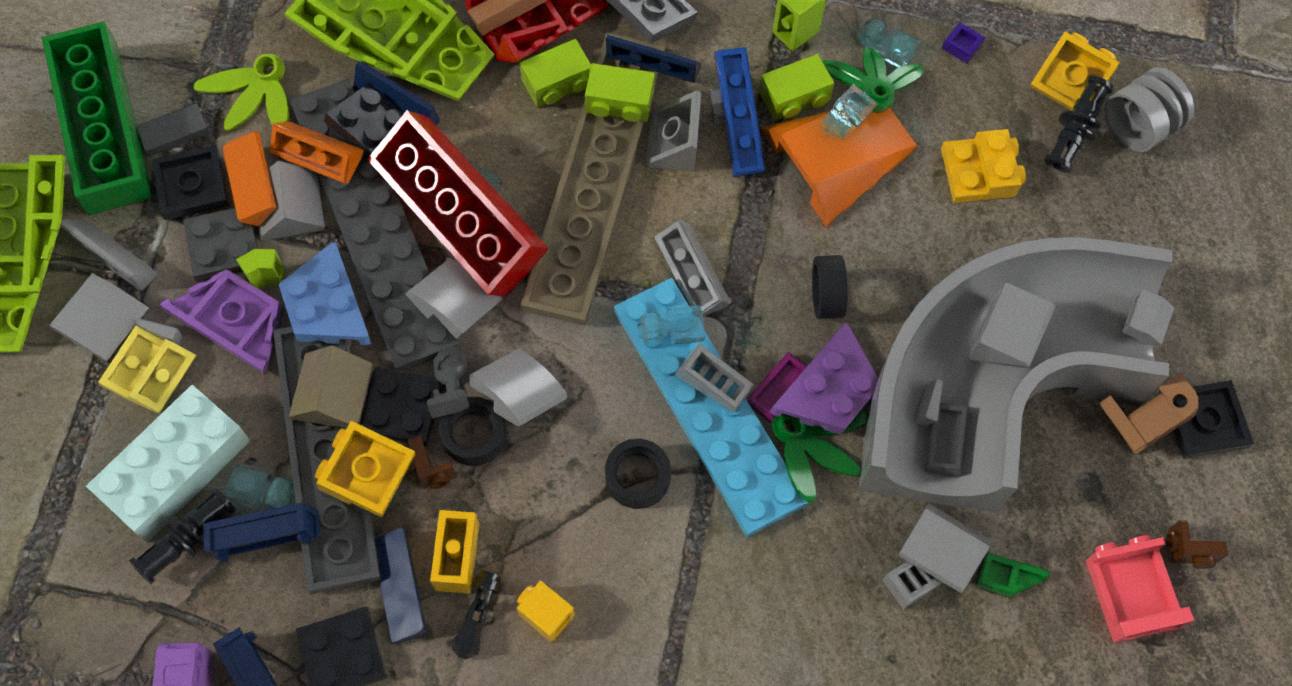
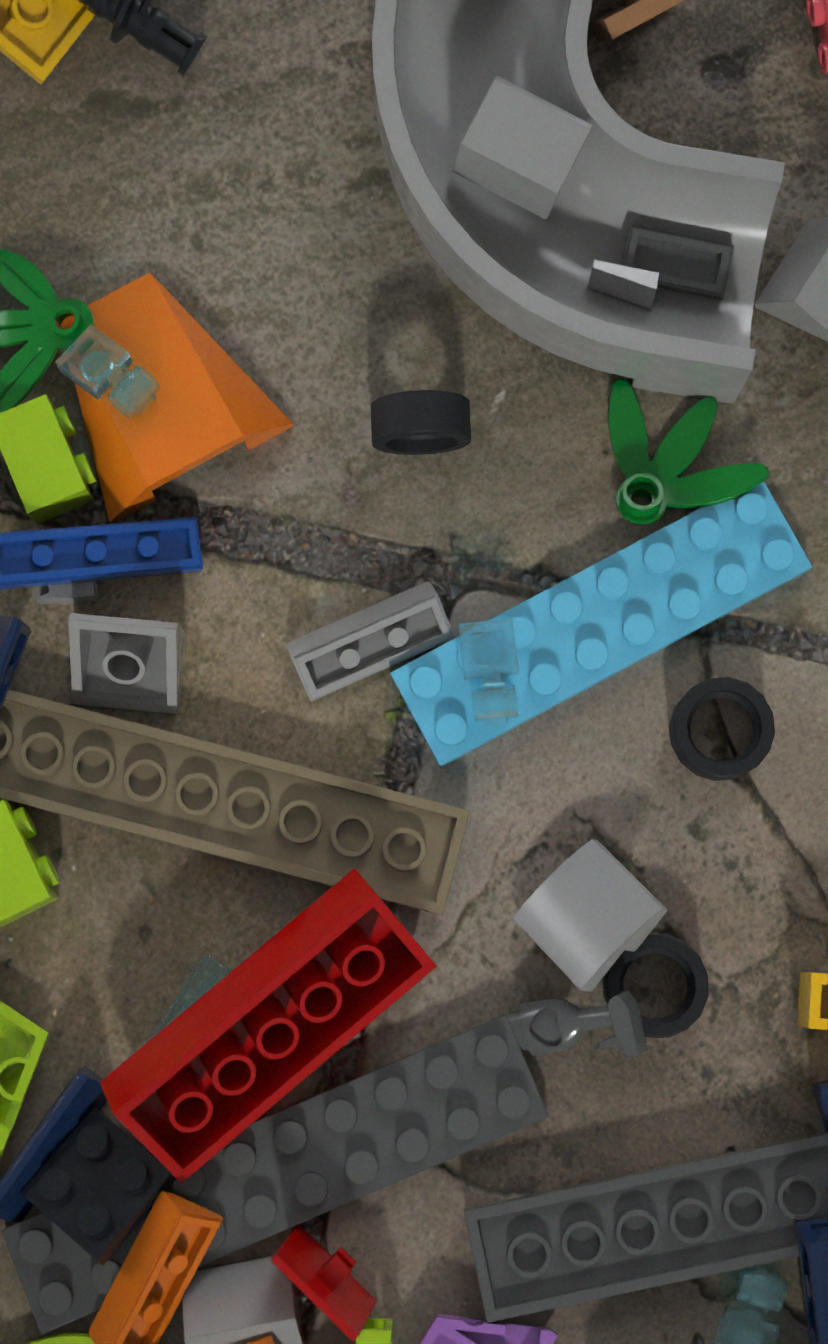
camera: 85 degrees left, 15 degrees up
(304, 234) = (325, 1280): none -> red piece
(323, 301) = (437, 1242): medium blue wing -> none
(331, 387) = (598, 1217): dark tan slope -> none
(364, 468) = (740, 1151): yellow plate -> none
(398, 405) = (610, 1105): black plate -> none
(429, 476) = (709, 1067): reddish brown bracket -> none
(452, 297) = (435, 1028): light grey slope -> none
(619, 92) = (61, 751): lime brick -> none
(697, 379) = (554, 635): light grey slope -> none
(775, 385) = (573, 510): magenta tile -> none
(831, 386) = (577, 430): medium lavender wing -> none
(983, 167) = (193, 171): yellow plate -> none

